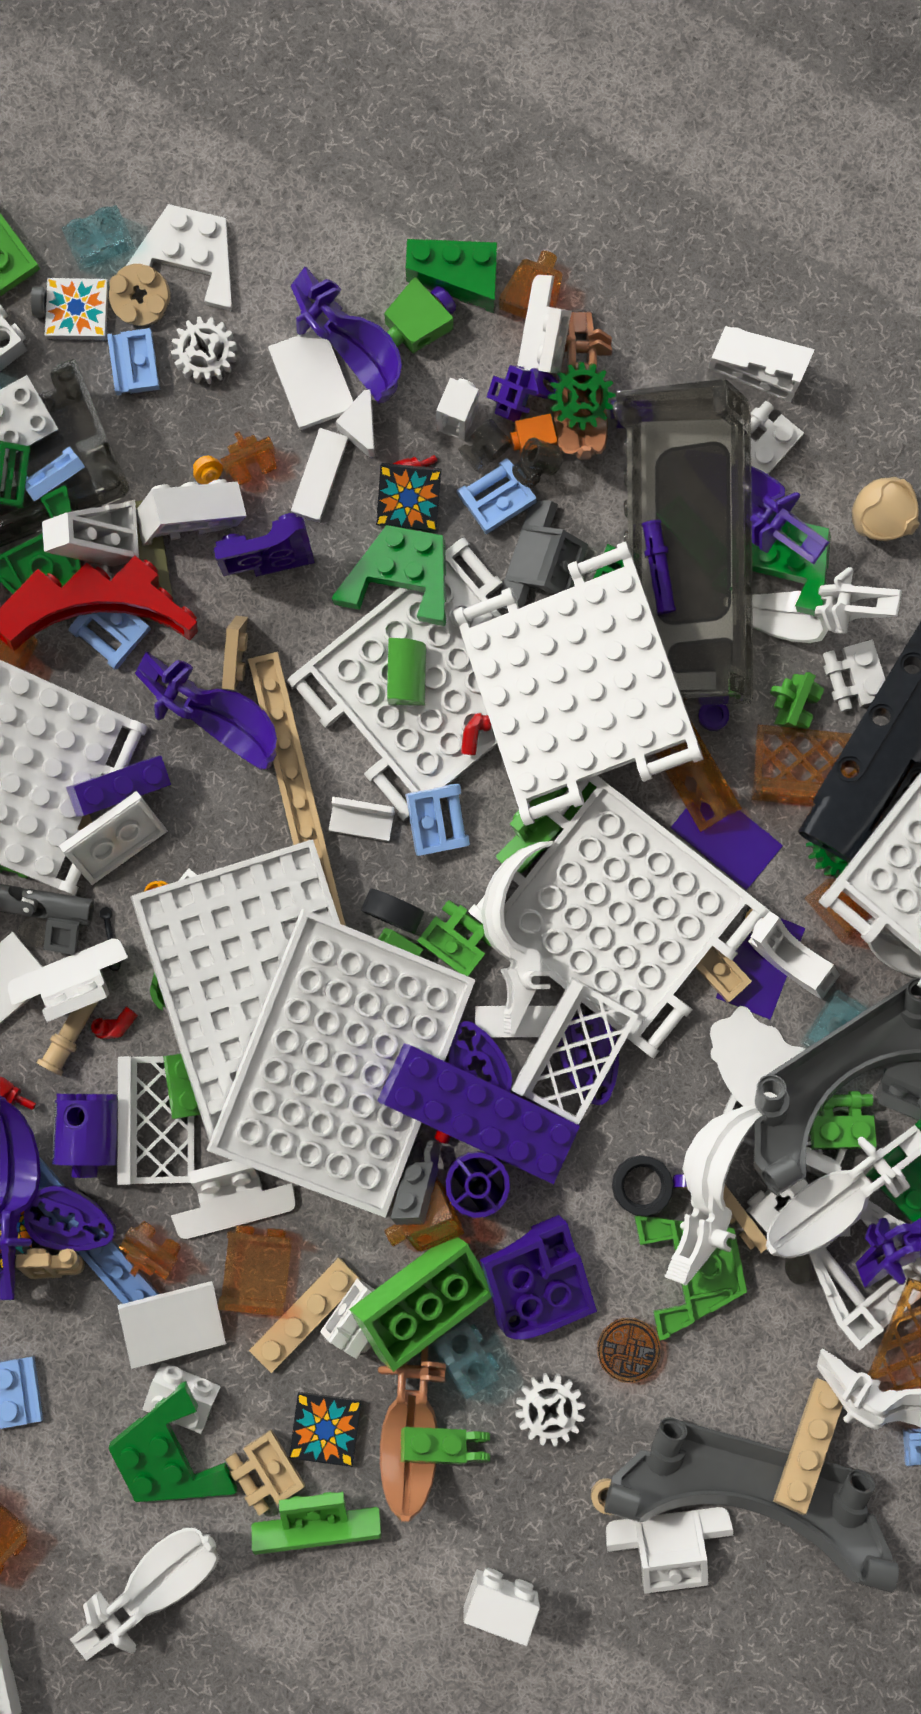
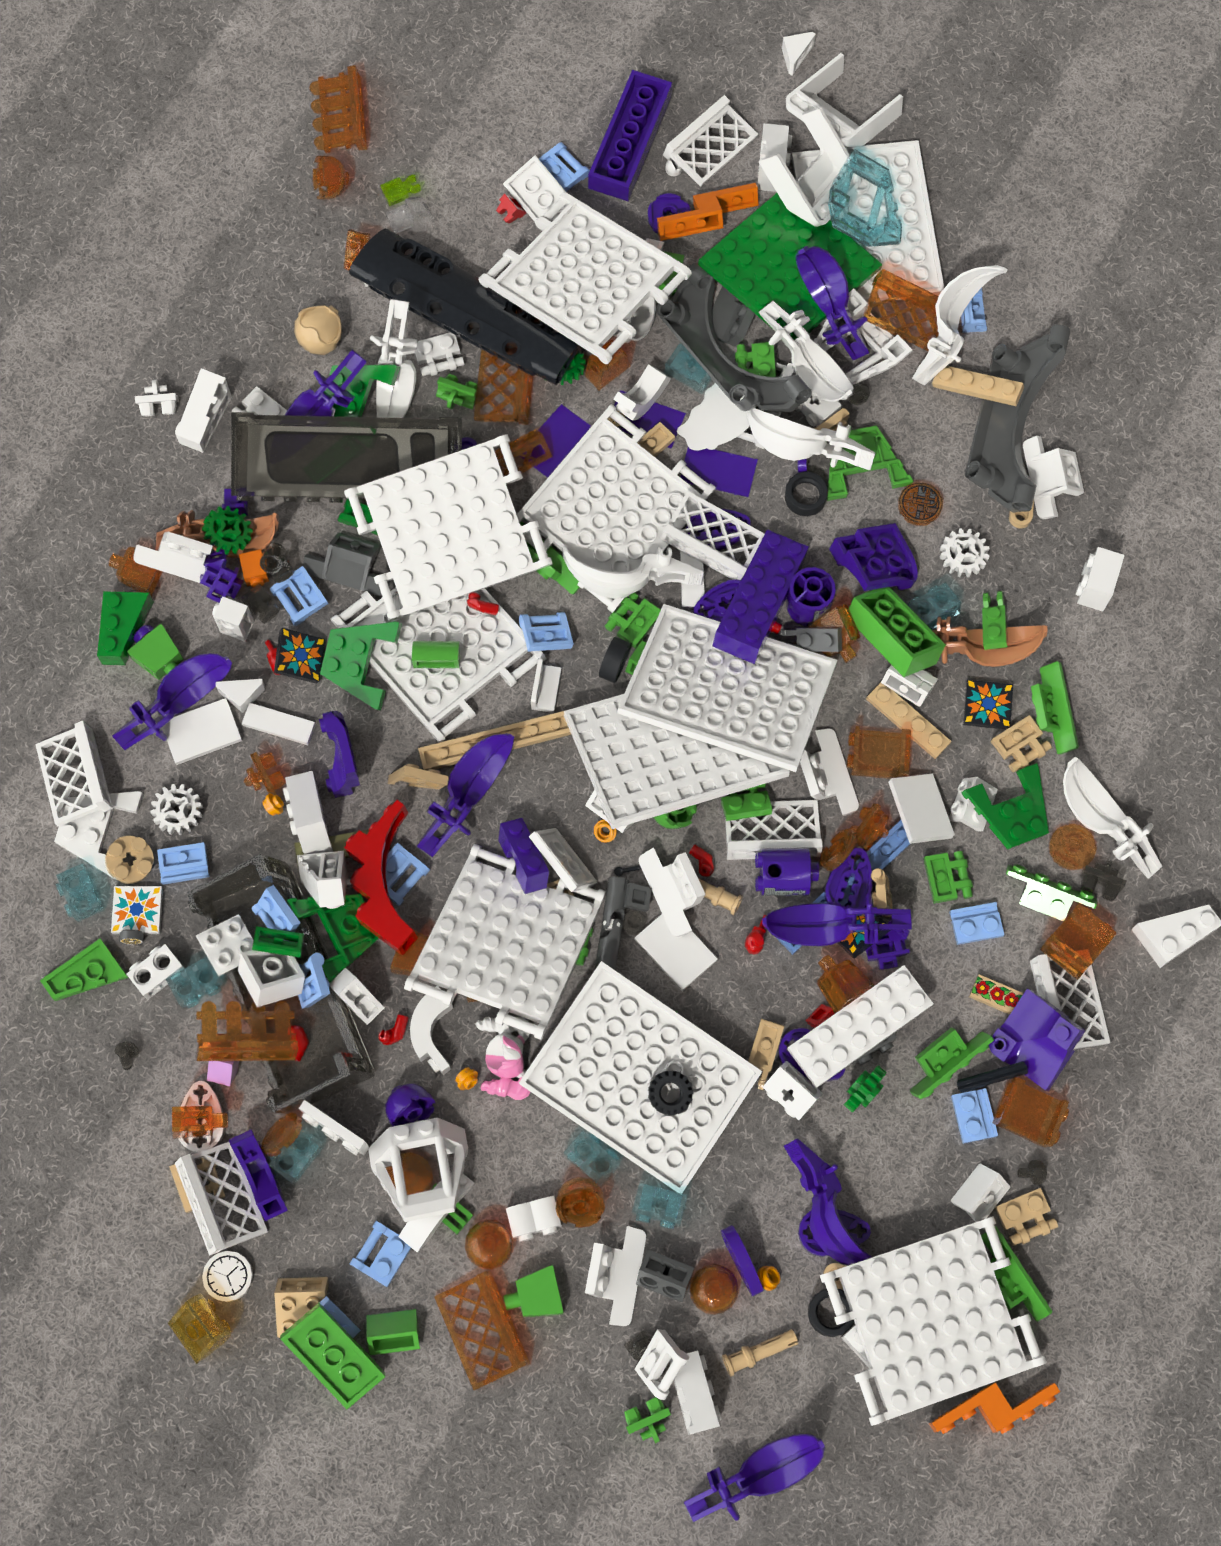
camera: 90 degrees left, 10 degrees down
(48, 1496) = (1047, 896): none -> bracket
(55, 1586) = (1104, 876): none -> clear smoke hips
(74, 1347) = (941, 878): none -> bright green plate
(113, 1207) = (841, 847): none -> clear orange tile
(124, 1527) = (1067, 852): none -> clear orange tile
(259, 241) = (90, 764): none -> white fence
(658, 564) = (331, 481): dark purple pin -> none
(681, 1068) = (723, 469): none -> dark purple window
(777, 291) = (147, 402): none -> white hips

